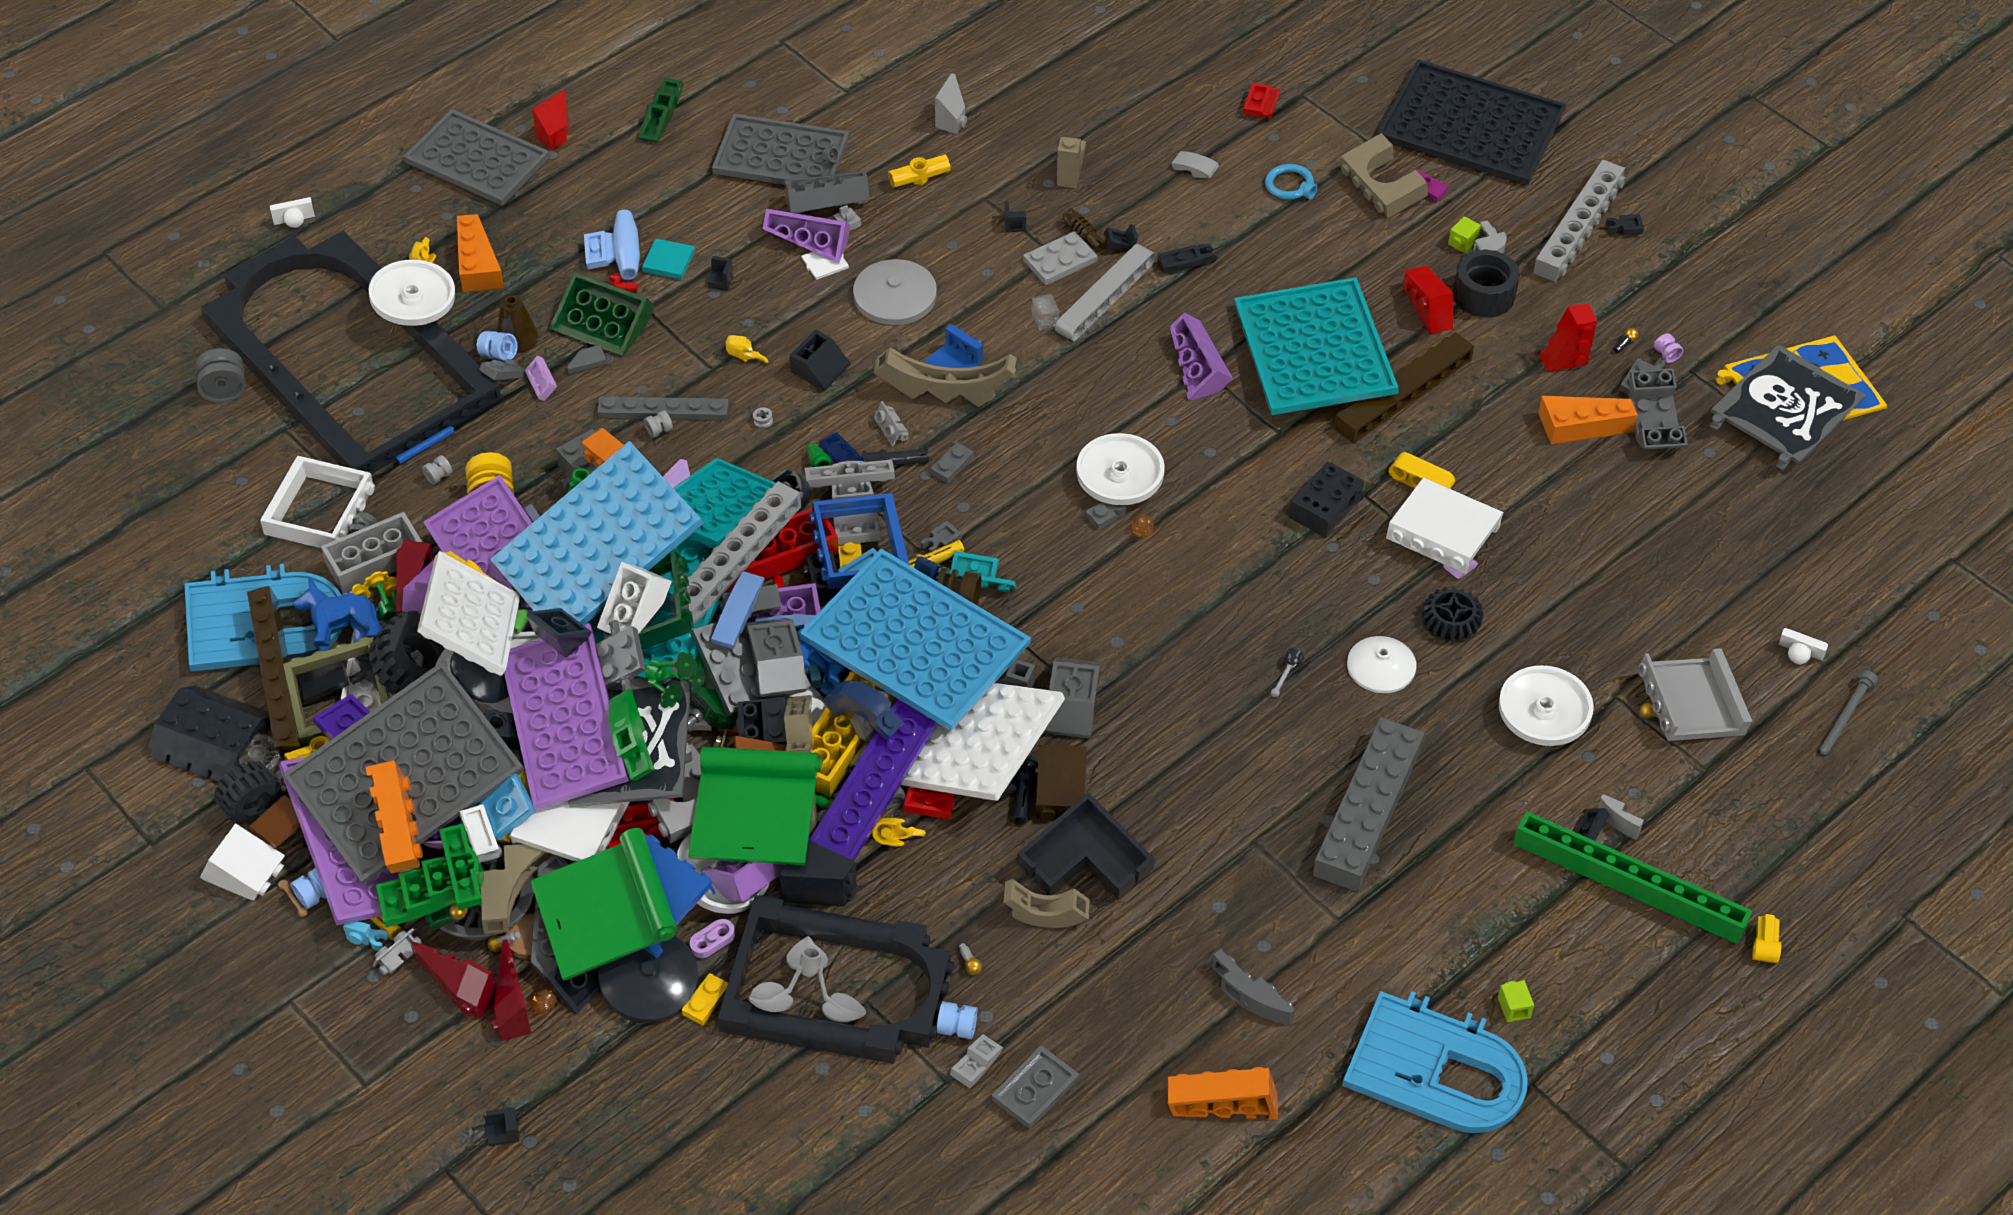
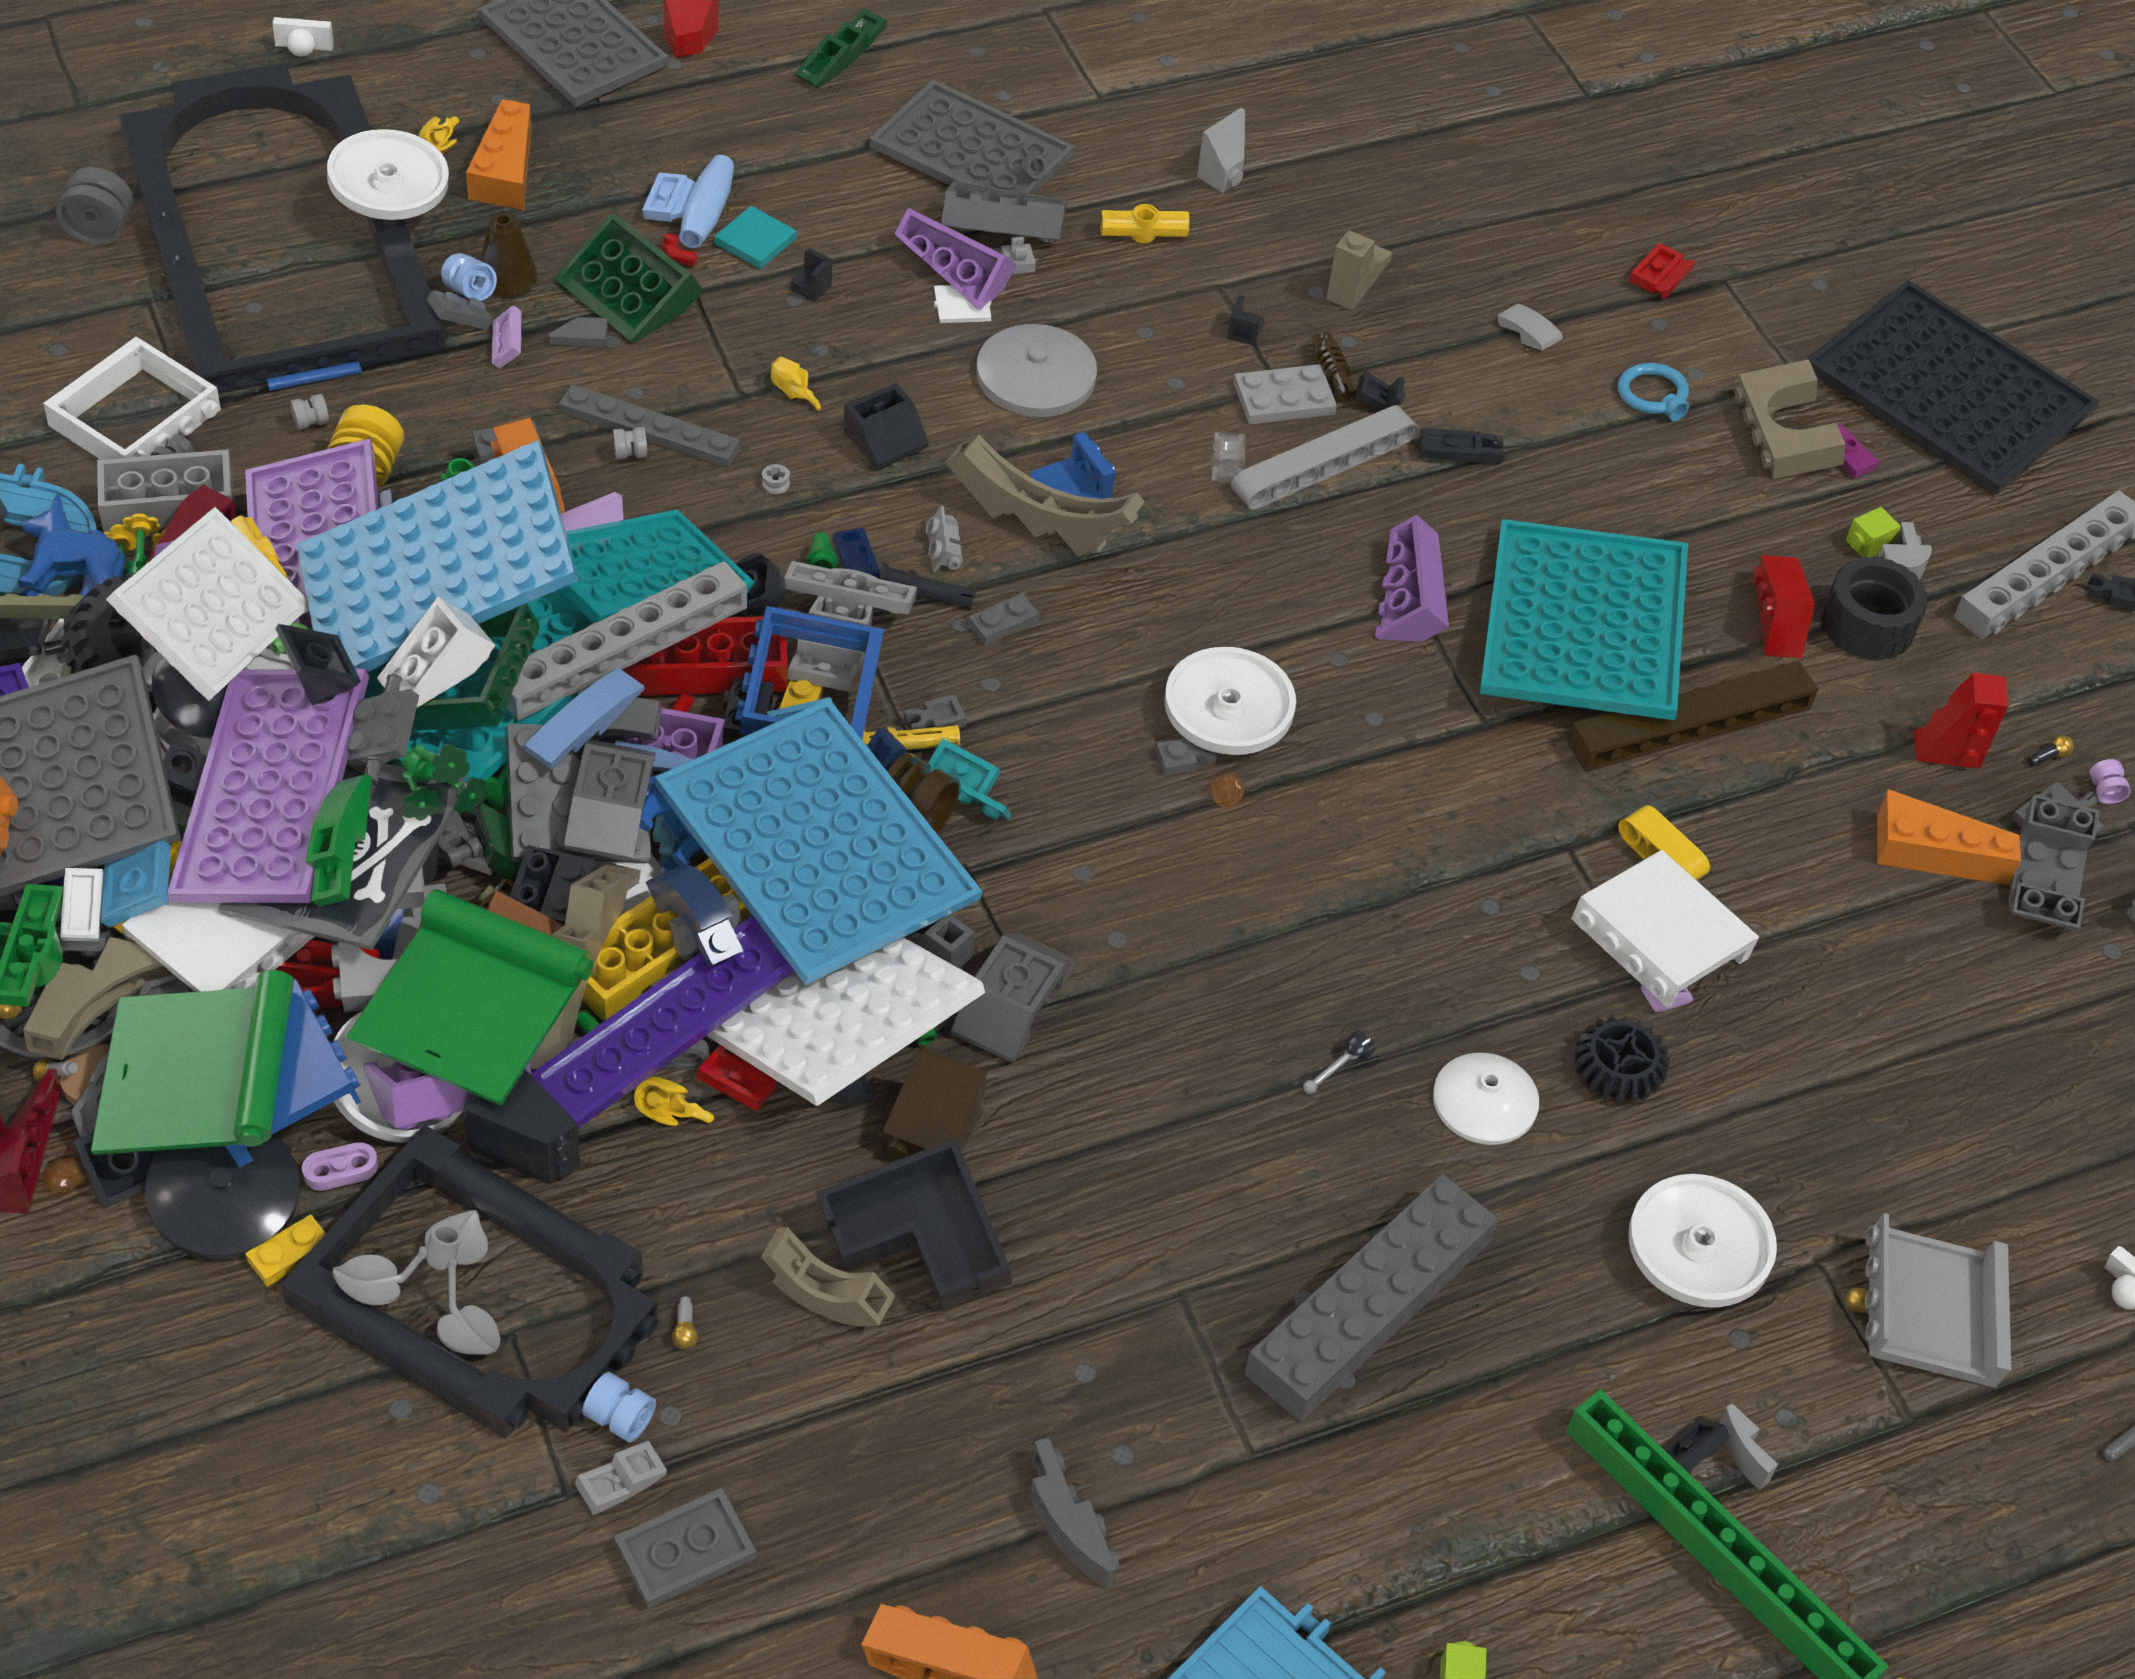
camera: 15 degrees right, 0 degrees up
(1025, 781) = (886, 1095): black pin -> none
(1326, 499) = (1508, 836): black piece -> none

